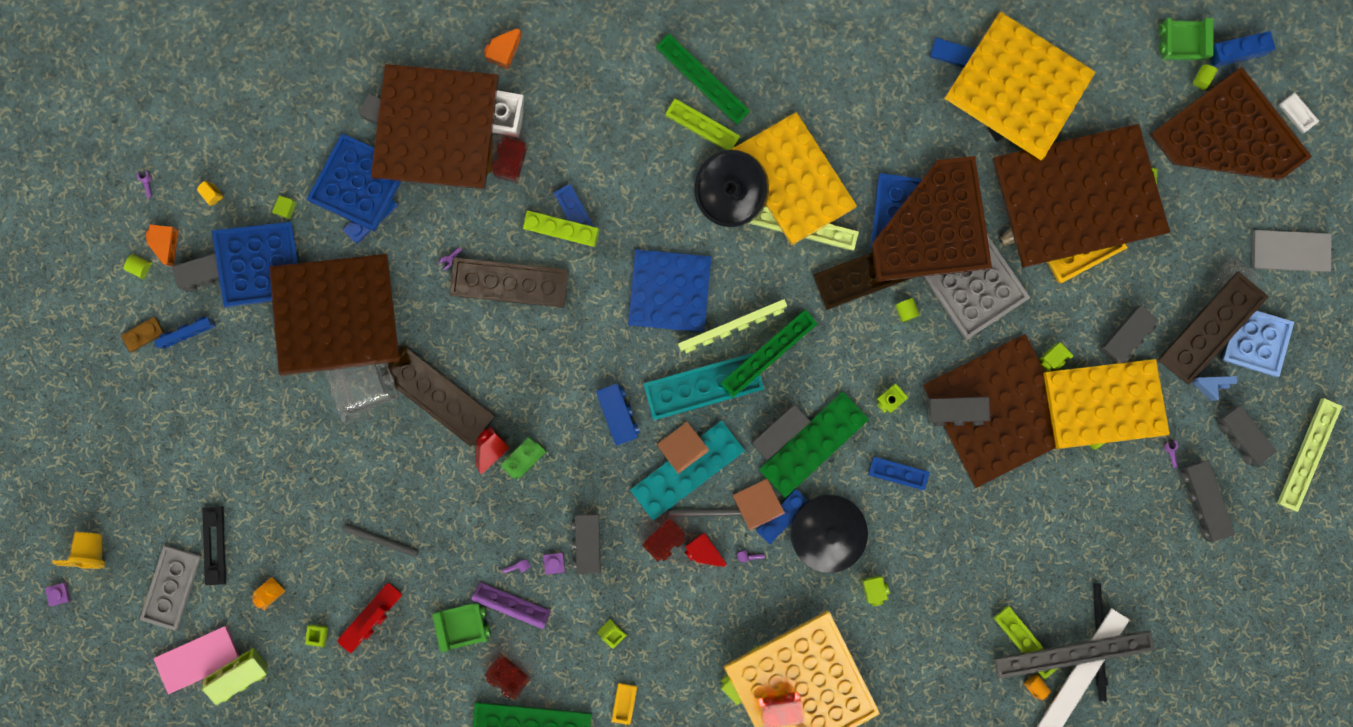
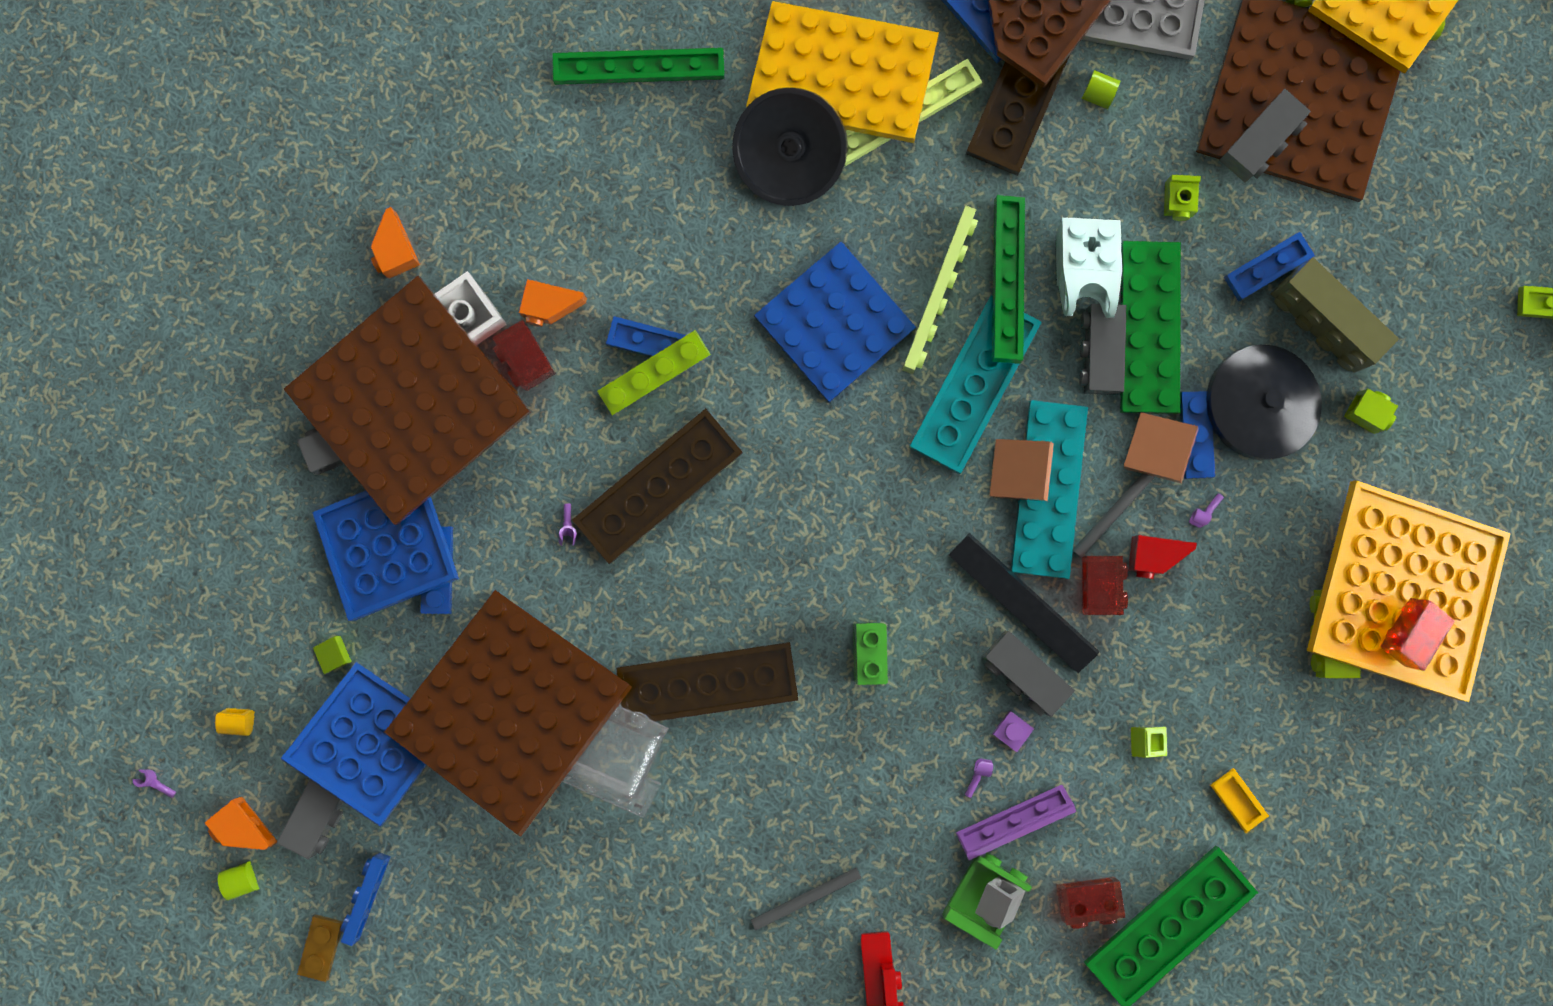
camera: 45 degrees left, 0 degrees up
(464, 632) = (1000, 902): none -> light grey brick
(489, 449) = (821, 683): red slope -> none
(546, 147) = (548, 302): none -> orange slope
(617, 414) = (917, 505): blue brick -> none
(620, 510) = (1024, 603): none -> black tile
(702, 125) = (688, 114): lime plate -> none
(807, 388) = (1089, 262): none -> light aqua brick
(901, 527) = (1334, 316): none -> olive brick

